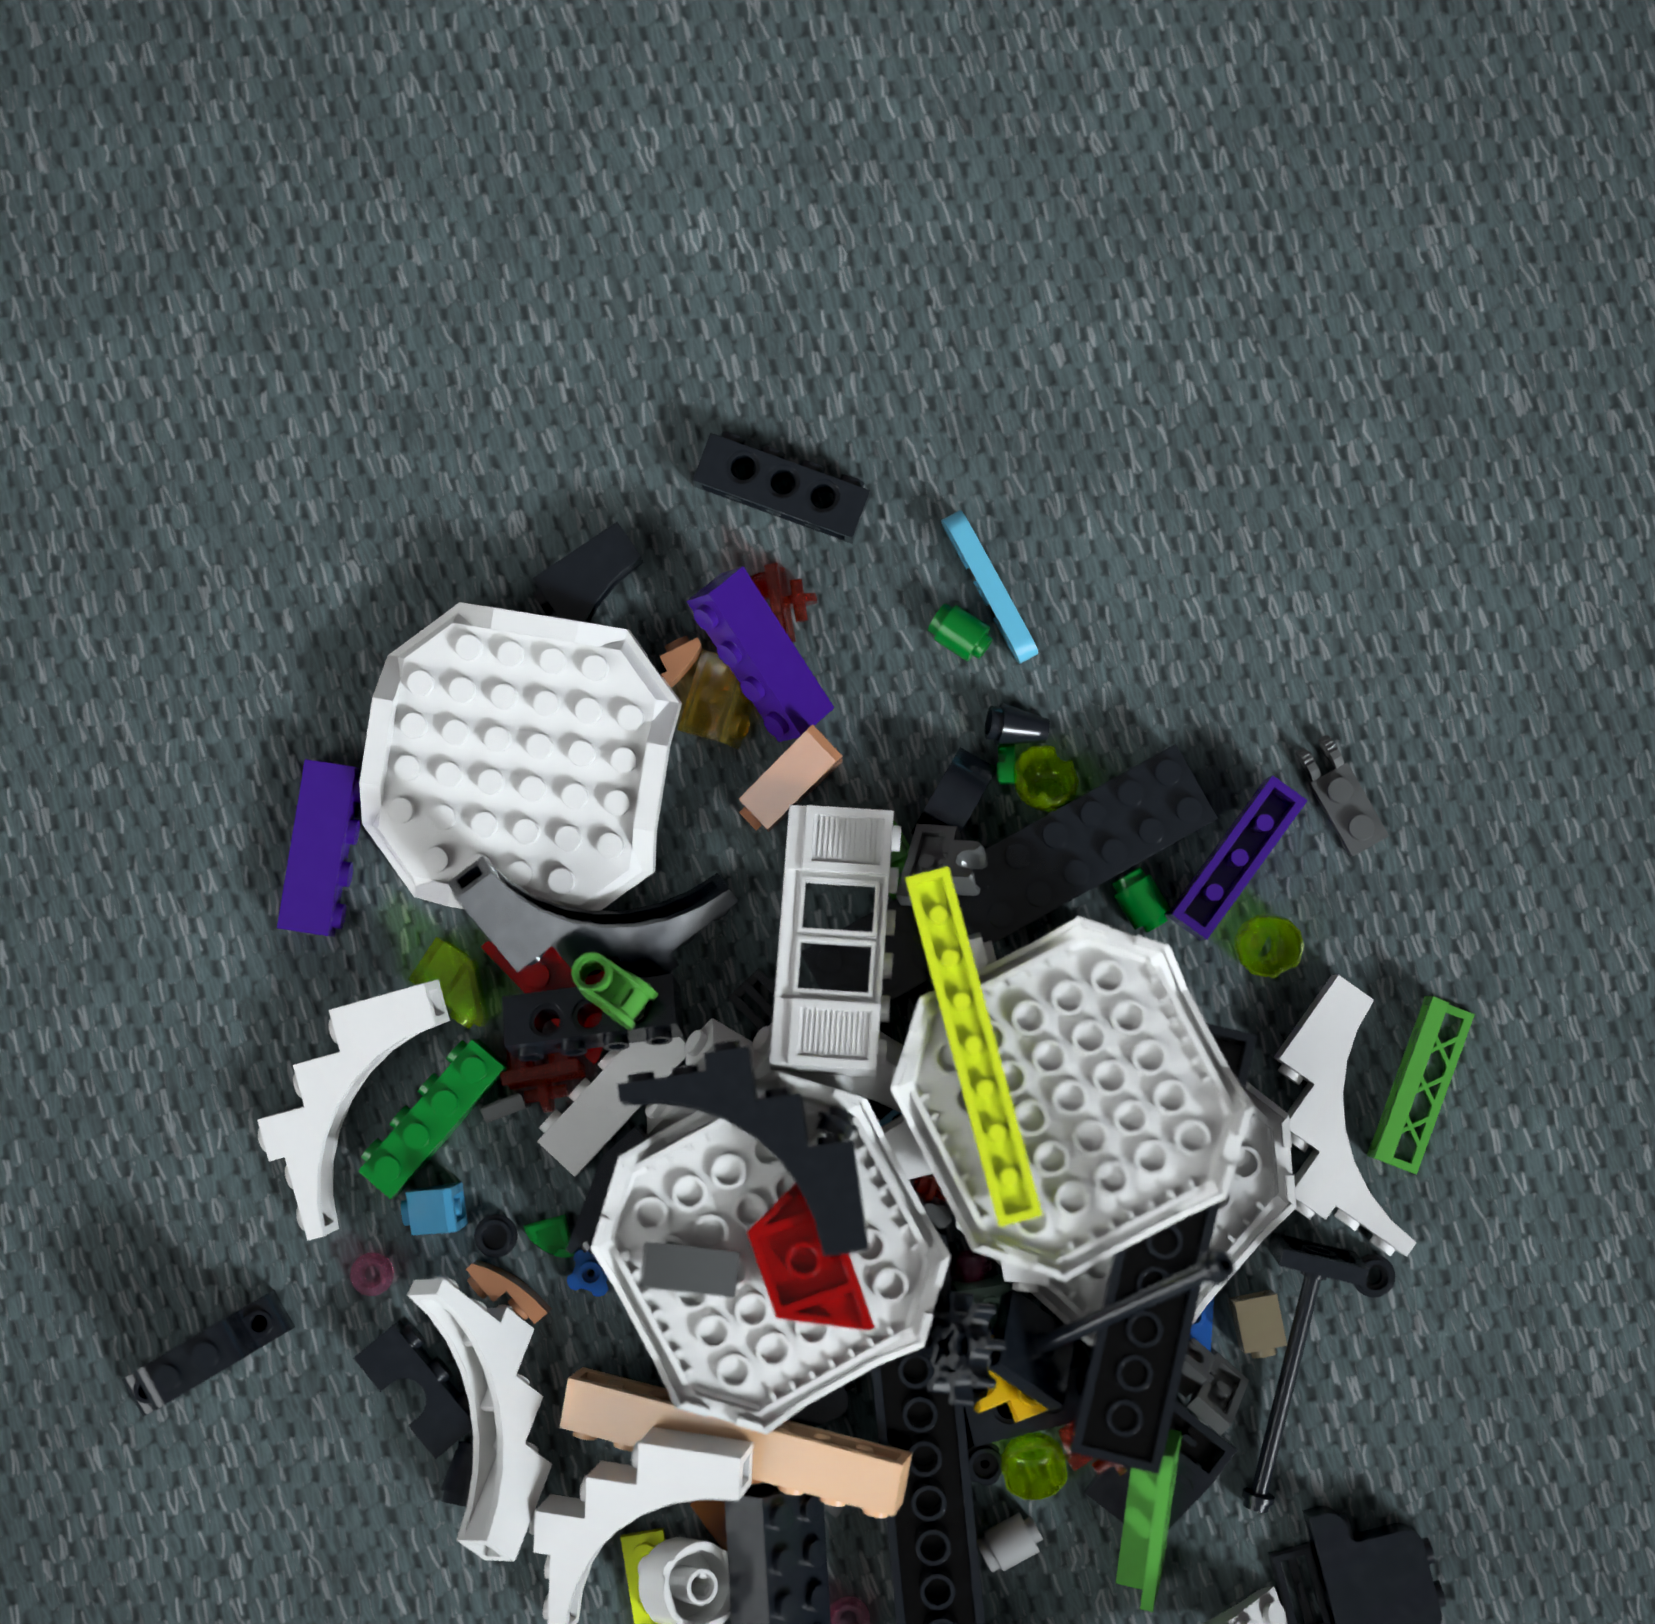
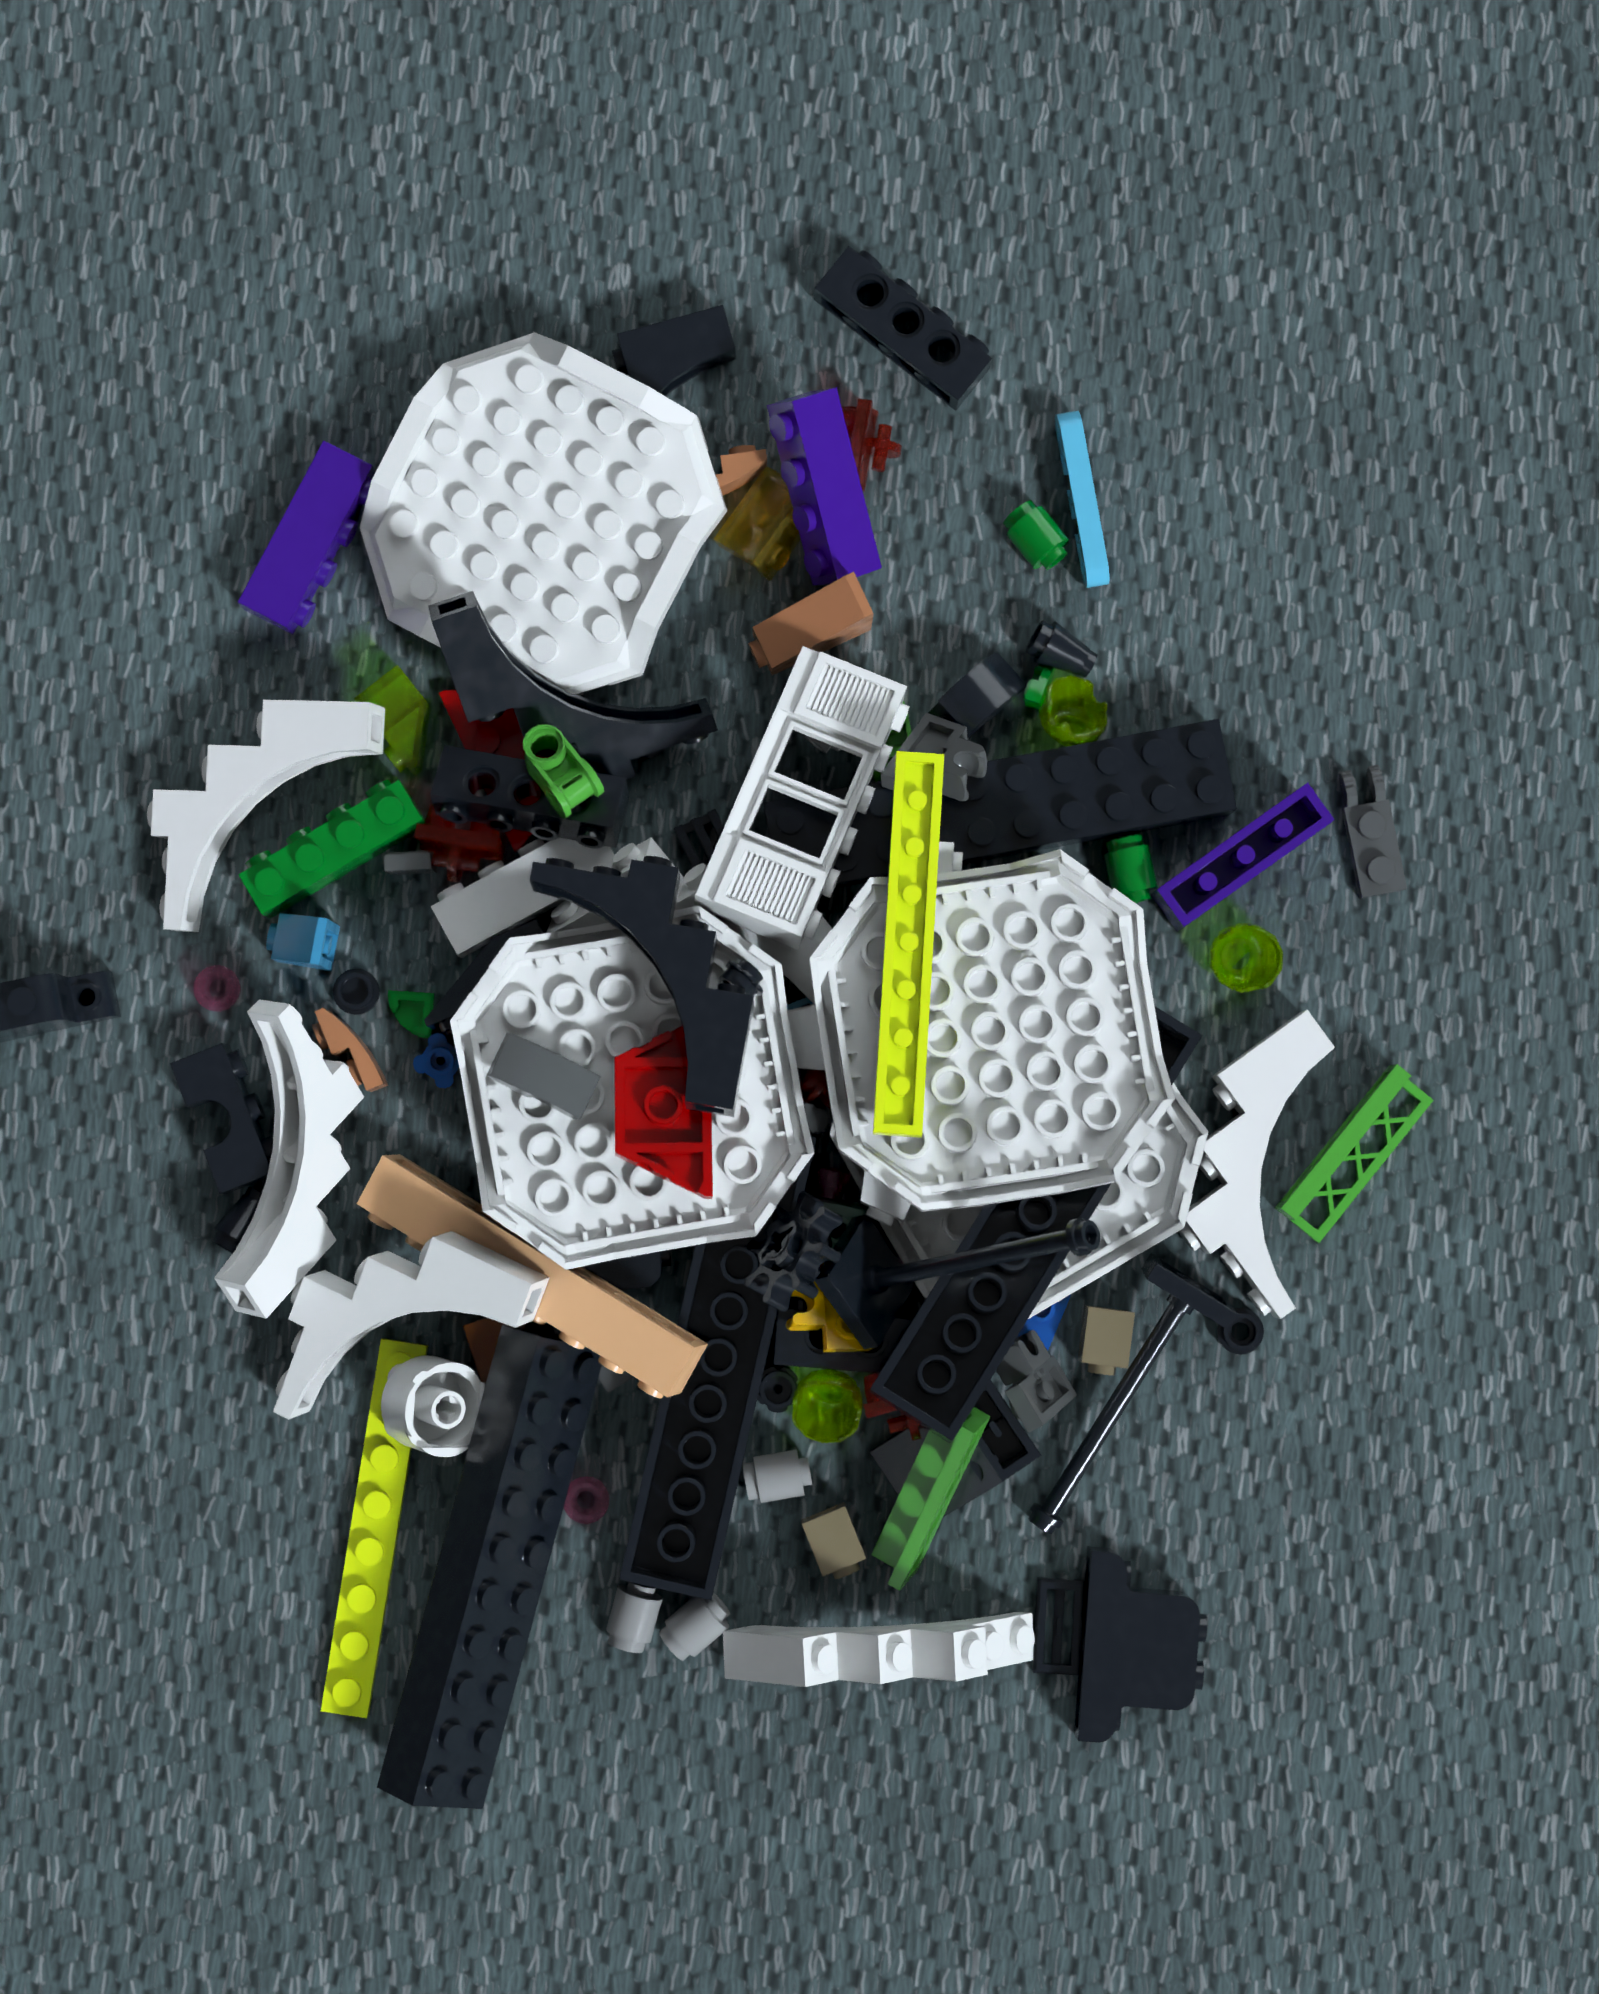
camera: 10 degrees right, 0 degrees up
(1079, 1583) = (834, 1541): none -> dark tan brick

